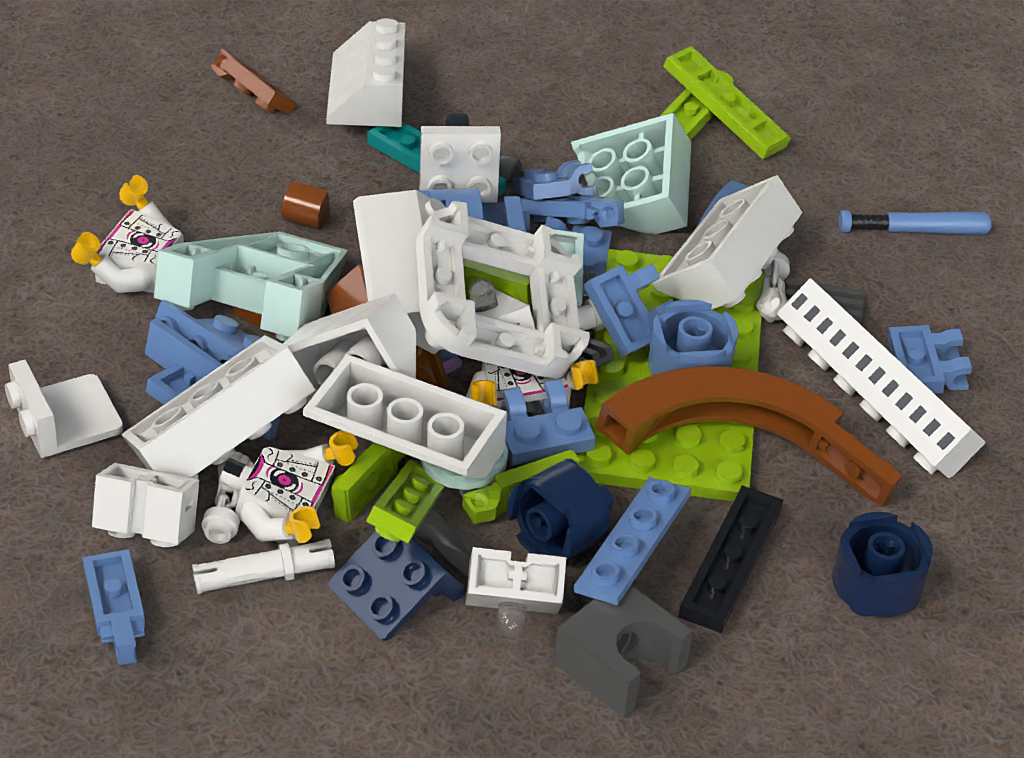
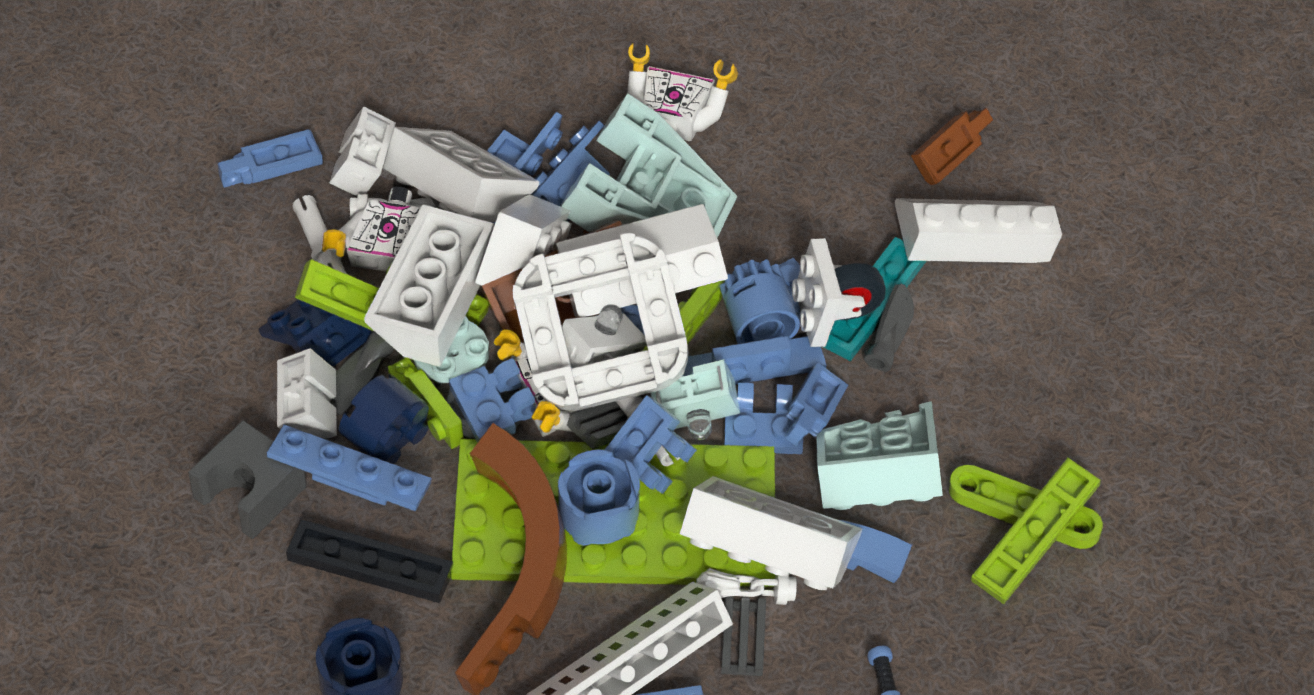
camera: 85 degrees right, 10 degrees up
(61, 413) = (469, 87): white bracket -> none
(306, 205) = (771, 208): dark orange brick -> none
(545, 184) = (848, 383): medium blue plate -> none

